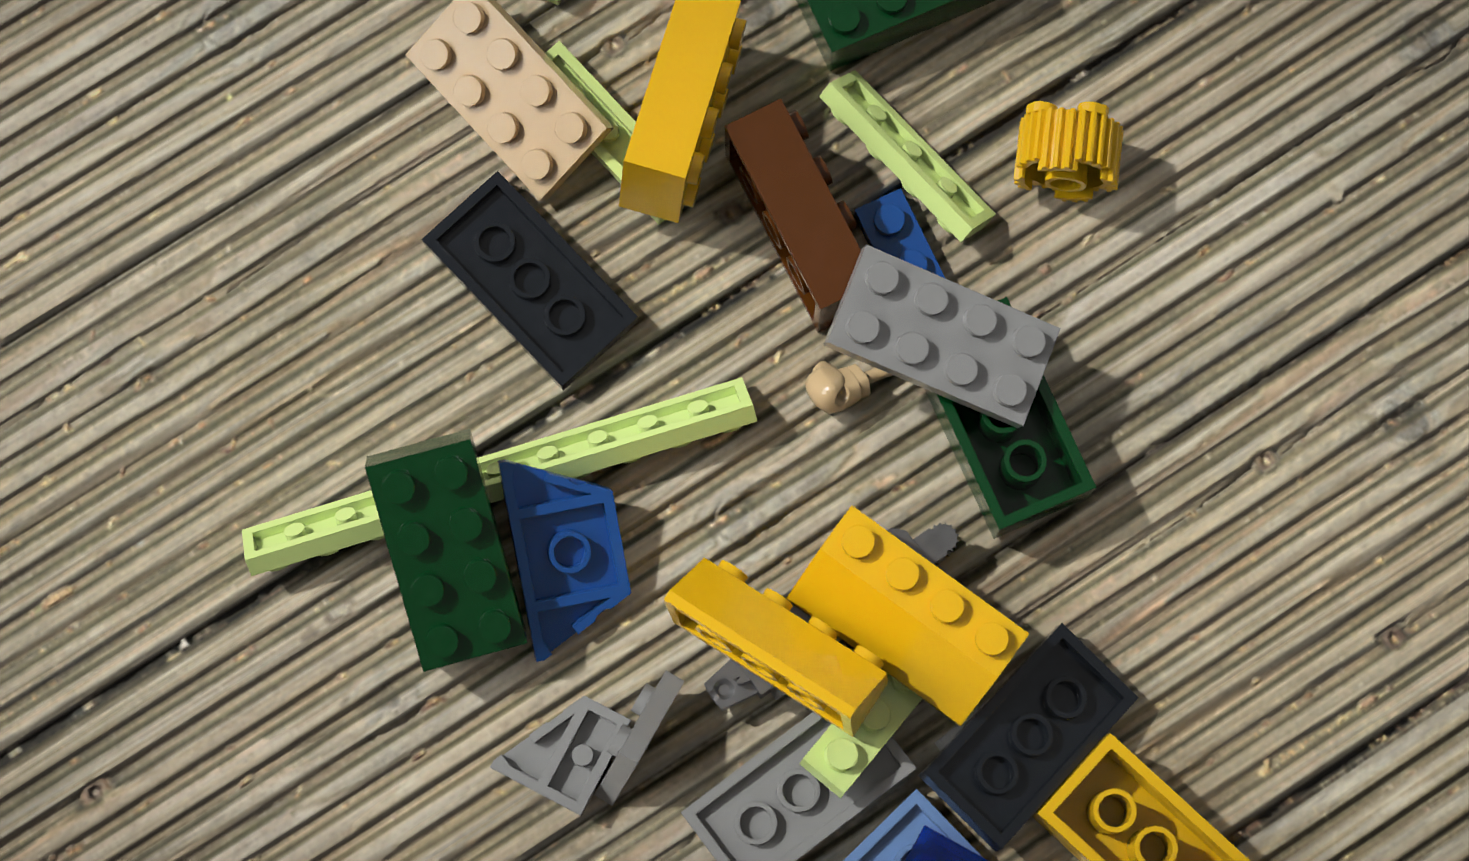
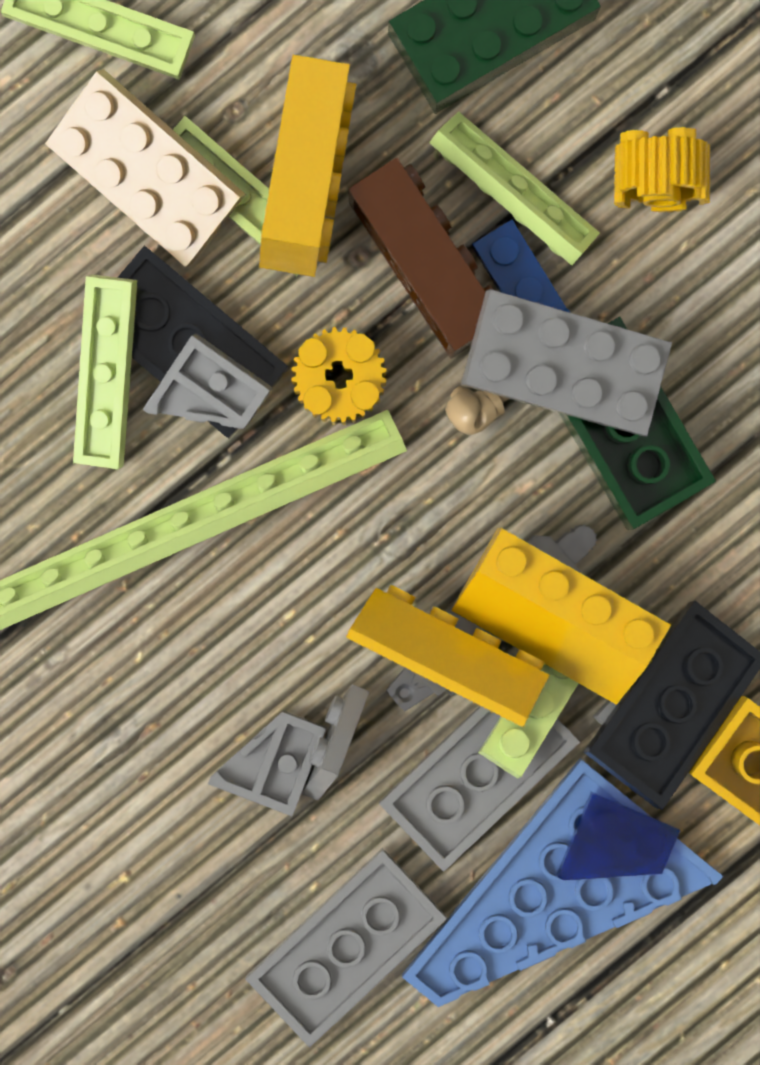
camera: 10 degrees left, 10 degrees up
(436, 298) = (105, 371): none -> yellowish green plate
(446, 550) = (144, 601): dark green brick -> none
(547, 326) = (208, 387): none -> light grey wing
(563, 550) = (248, 585): blue wing -> none
(687, 304) = (357, 356): none -> yellow brick

